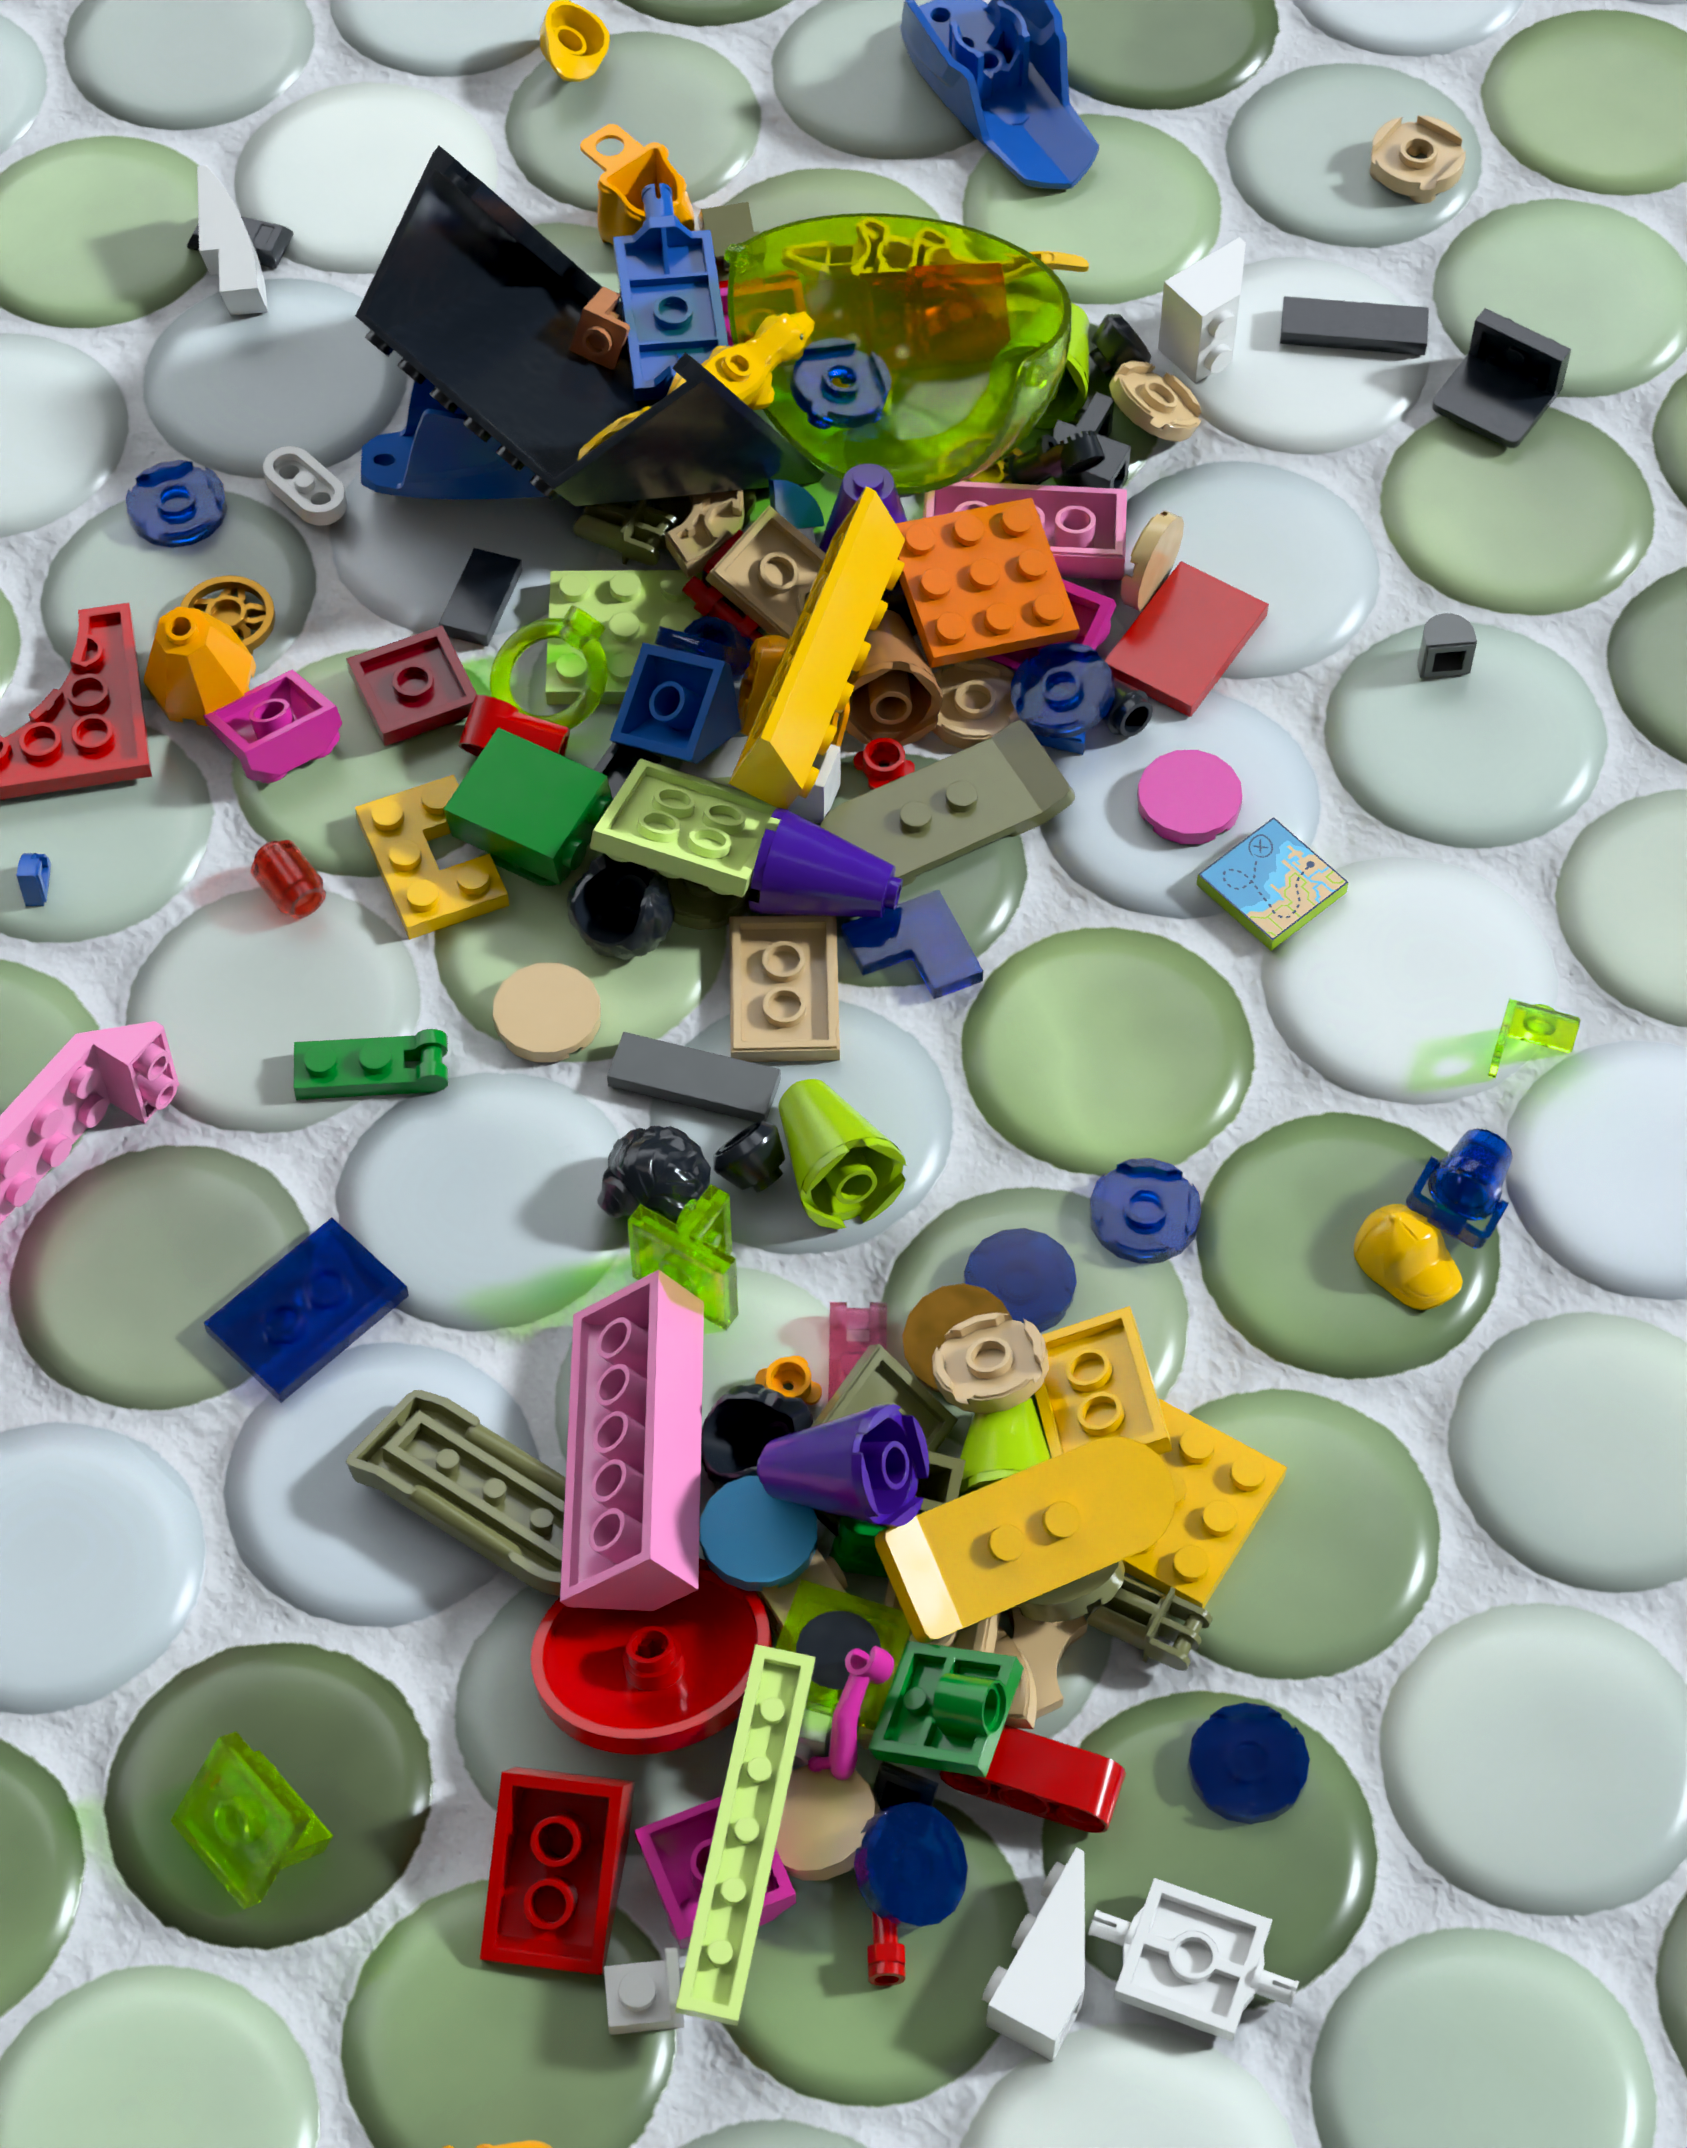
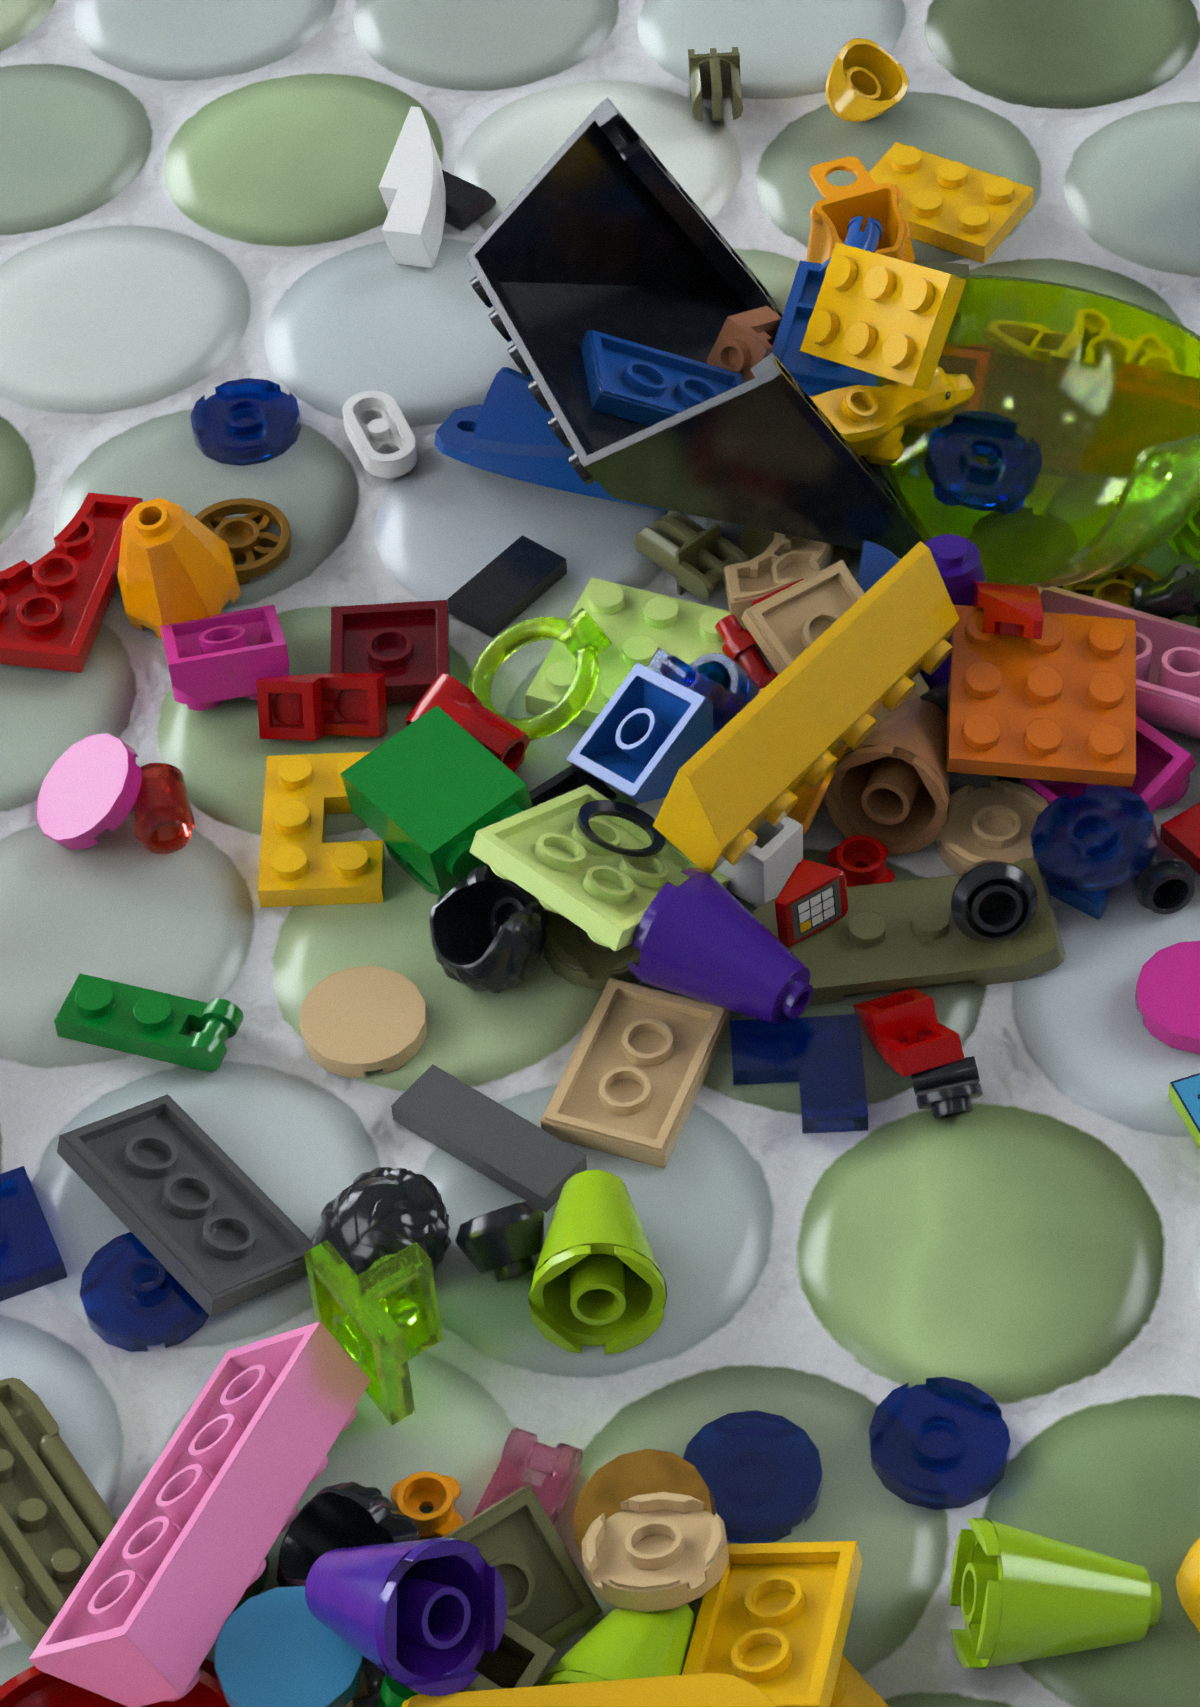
camera: 25 degrees right, 10 degrees down
(223, 882) = (88, 791): none -> tile
(381, 748) = (322, 705): none -> red slope
(438, 69) = (715, 78): none -> olive arm
(485, 1206) = (188, 1203): none -> dark grey tile
(490, 1308) = (131, 1313): none -> clear blue plate
(560, 390) = (645, 381): none -> blue tile
(697, 775) = (624, 811): none -> black piece
(703, 139) = (952, 202): none -> yellow plate
(727, 281) = (883, 316): none -> yellow plate
(869, 806) = (810, 901): none -> slope
(939, 516) = (1009, 609): none -> red slope
(983, 894) = (908, 1032): none -> red slope
(1012, 766) = (993, 901): none -> black cone
(1033, 928) = (948, 1088): none -> black plate
(1273, 1304) = (1042, 1597): none -> lime cone

